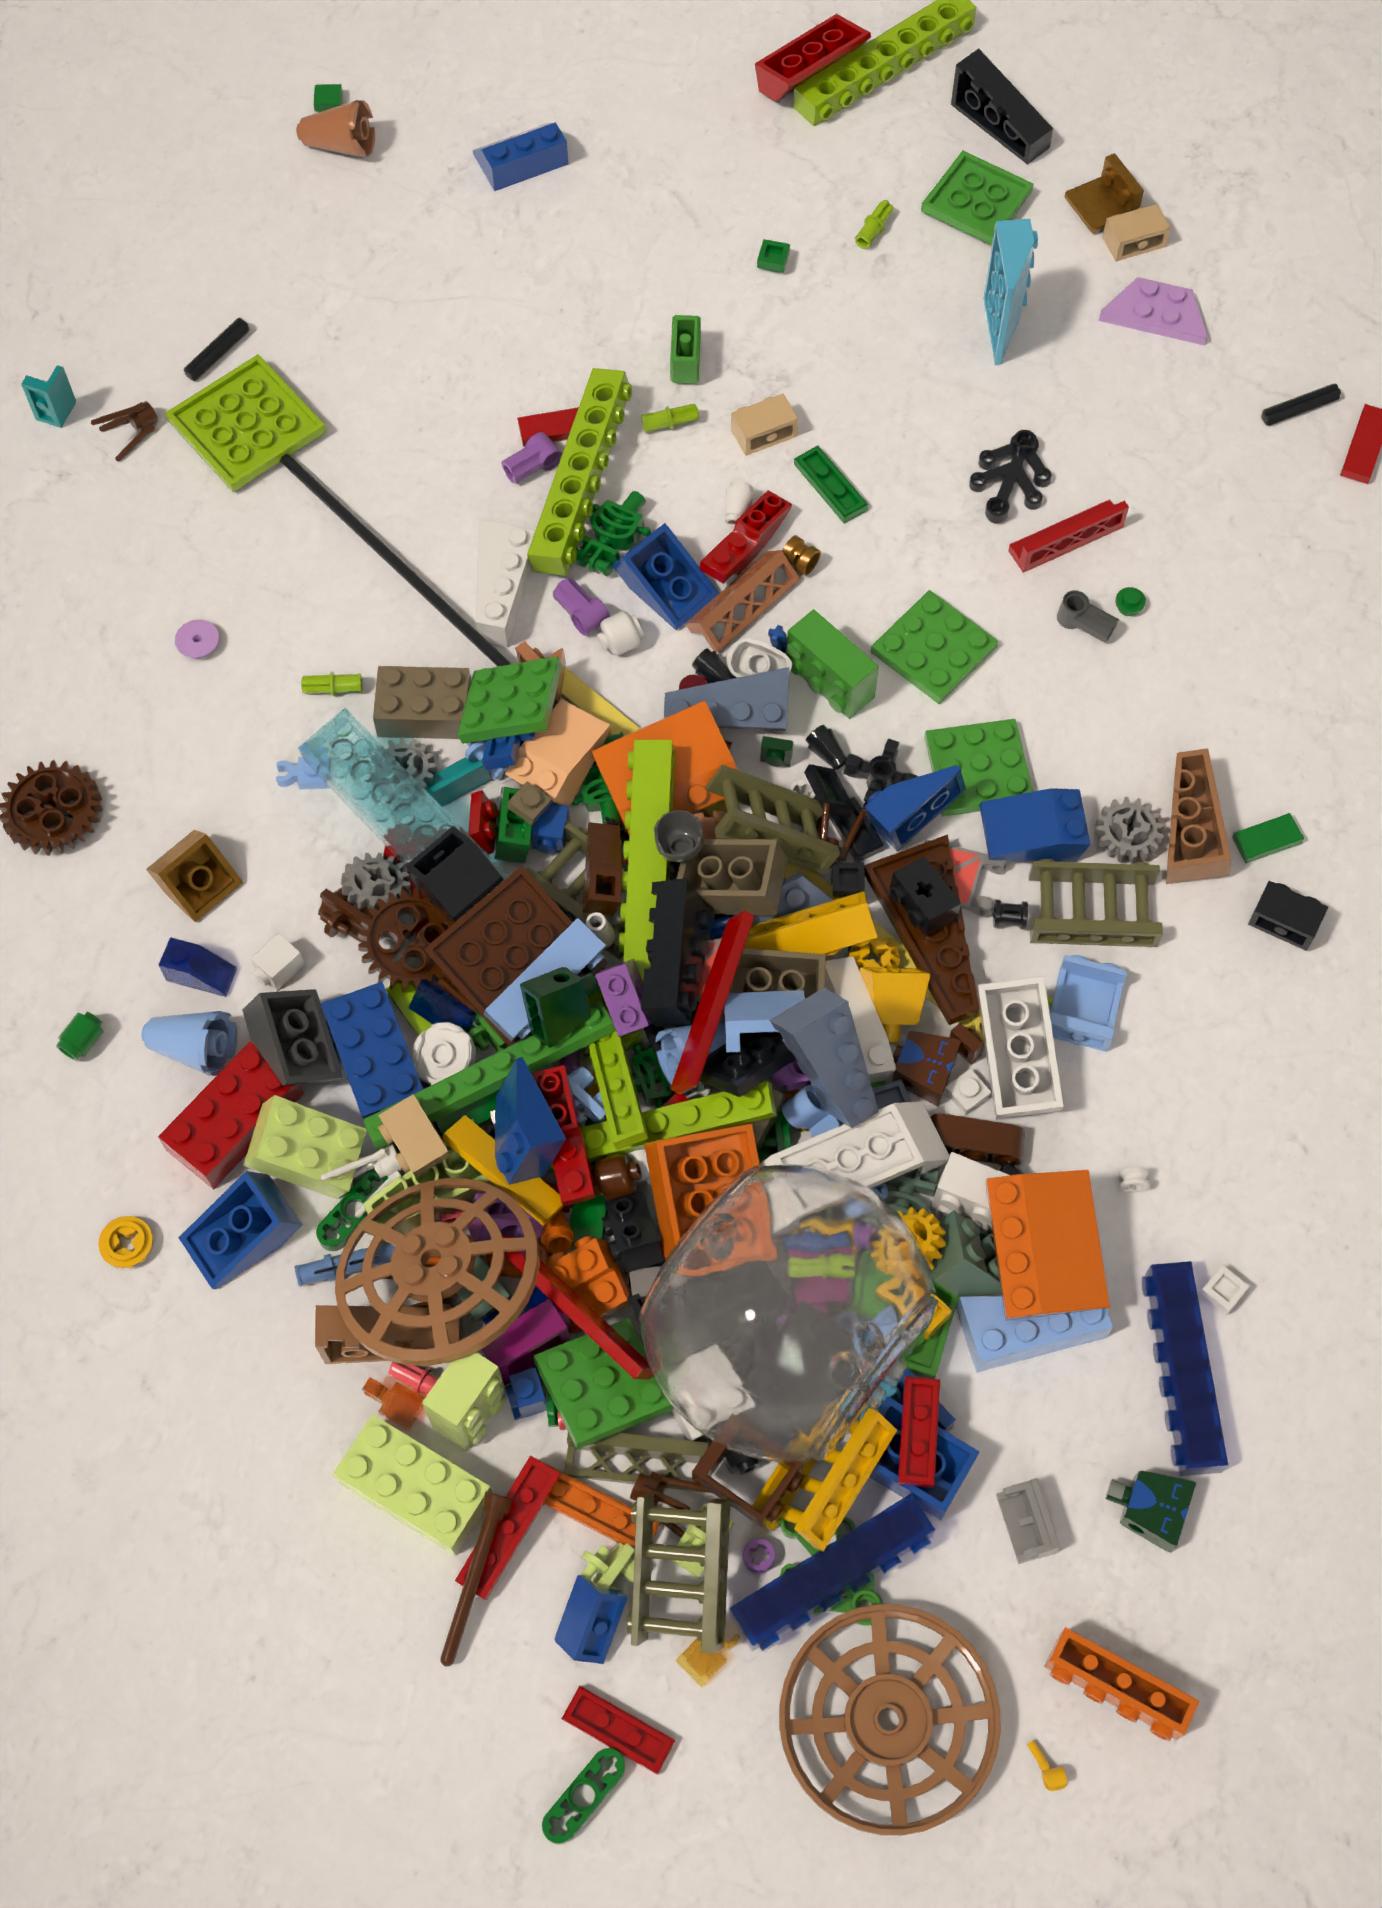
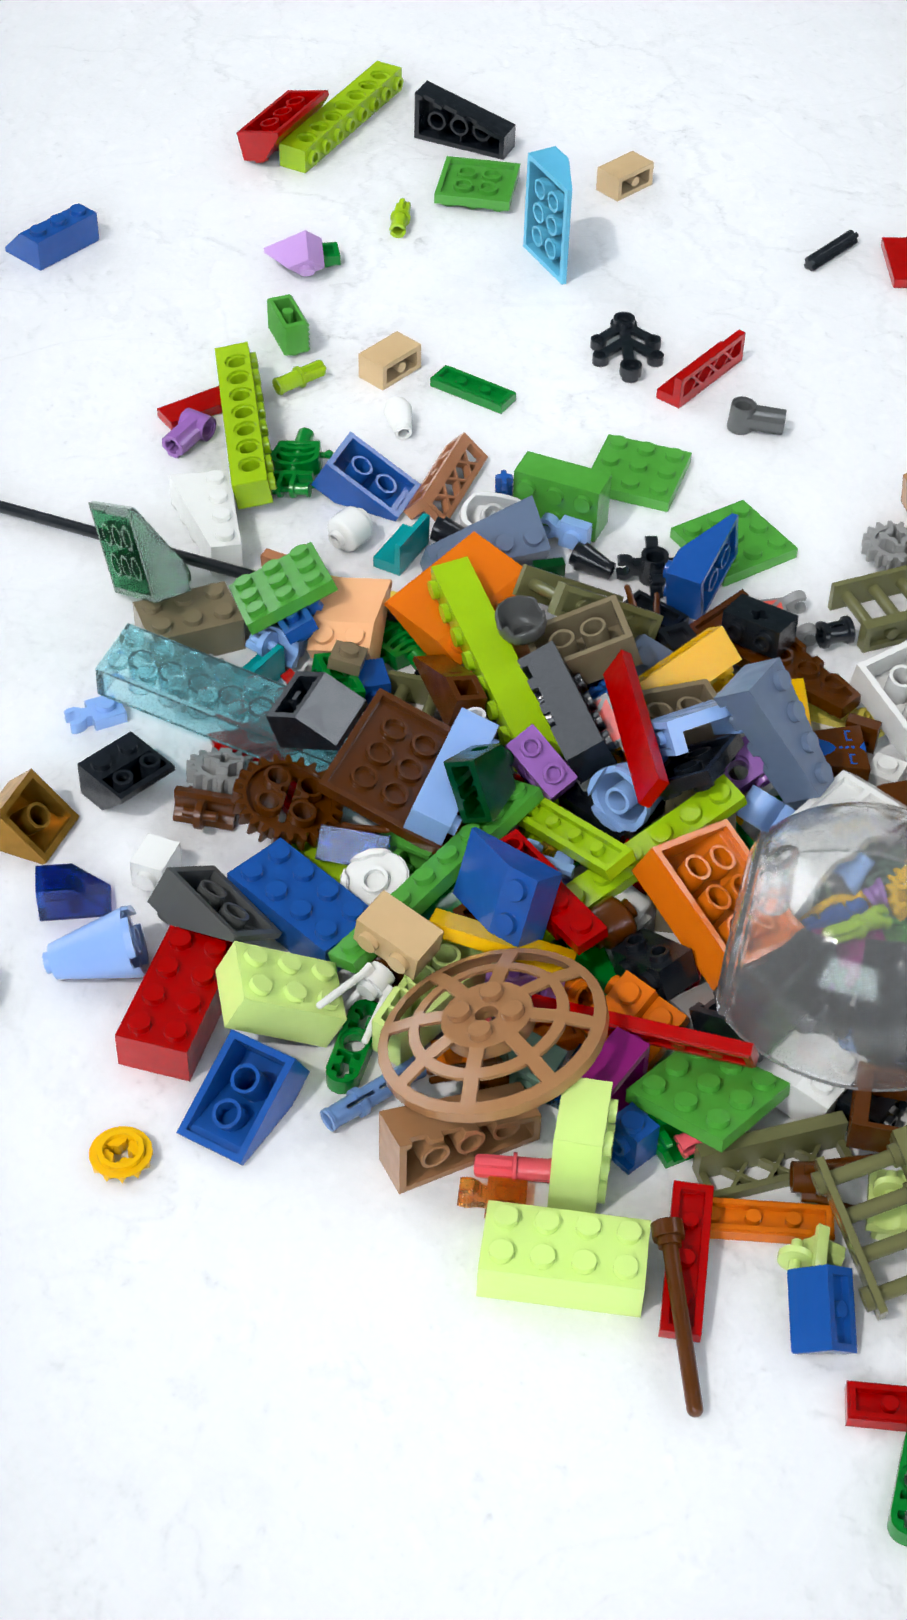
camera: 25 degrees left, 20 degrees down
(291, 854) = (121, 771): none -> black slope
(332, 683) = (86, 638): lime axle -> none
(397, 626) = (137, 555): none -> clear green slope
(583, 610) = (304, 524): medium lavender piece -> none
(662, 669) = (403, 546): none -> teal panel
(741, 254) = (299, 253): none -> lavender slope
(747, 539) = (424, 436): red slope -> none
(801, 555) = (483, 437): pearl gold wheel -> none
(824, 706) = (567, 530): none -> light blue plate
(829, 790) = (615, 585): black tile -> none
(1036, 826) = (816, 559): blue slope -> none
(1107, 195) = (589, 152): pearl gold bracket -> none
(1130, 601) = (784, 400): green plate -> none
(1157, 310) = (675, 220): lavender wing -> none

